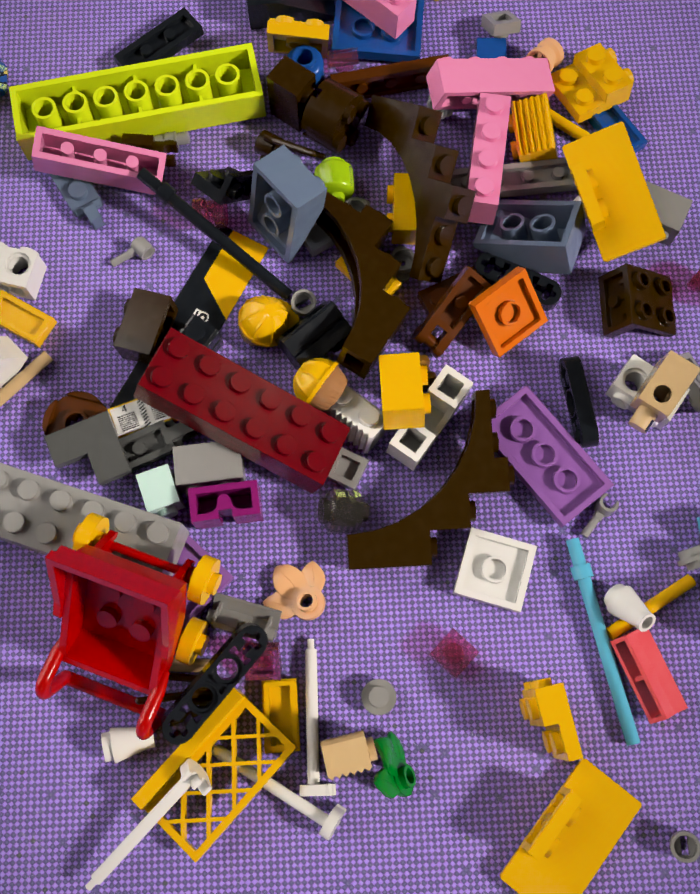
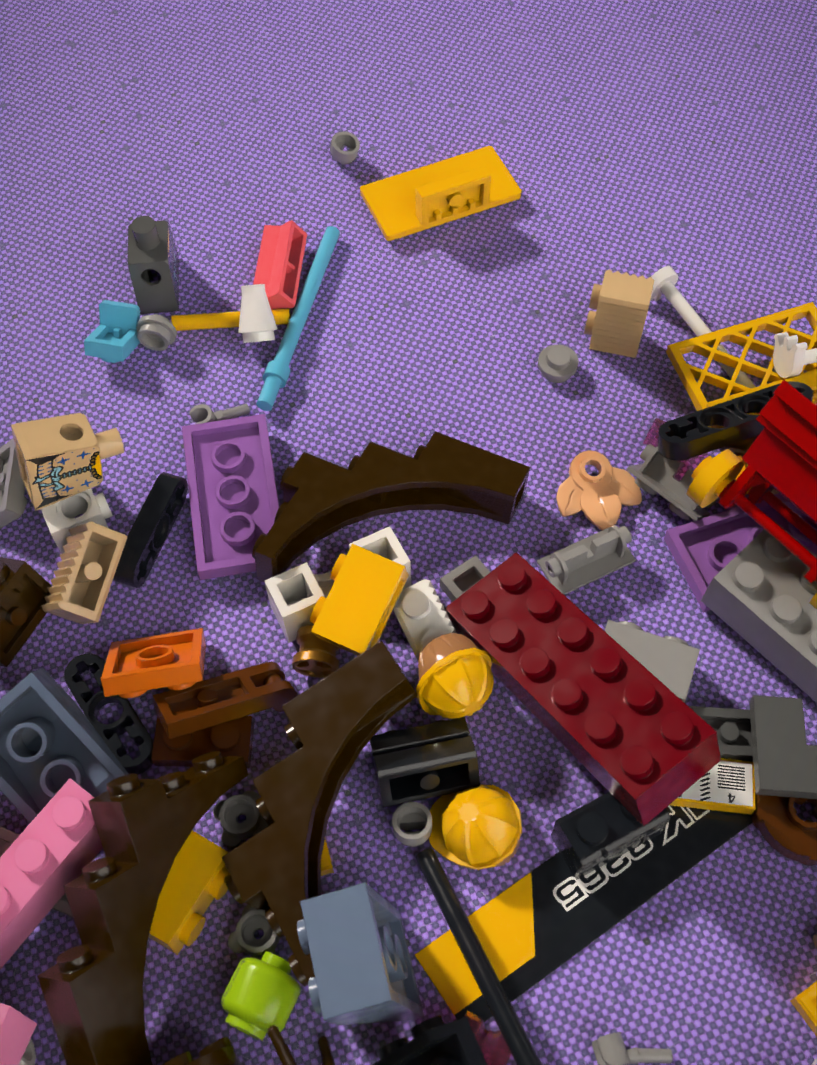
camera: 150 degrees left, 15 degrees down
(144, 325) = (659, 903): dark brown brick -> none
(160, 491) = (721, 666): light aqua brick -> none
(215, 502) = (655, 607): magenta brick -> none
(280, 531) = (588, 559): none -> light grey hinge
(281, 708) = (666, 394): yellow tile -> none
(313, 785) = (663, 319): white piece -> none
(342, 511) = (500, 536): clear smoke head -> none
(396, 776) = (575, 292): green plate -> none
(454, 653) = (458, 362): clear pink plate -> none
(495, 570) = (366, 410): white plate -> none
(548, 707) = (399, 261): yellow plate -> none
(592, 341) = (85, 573): none -> tan brick

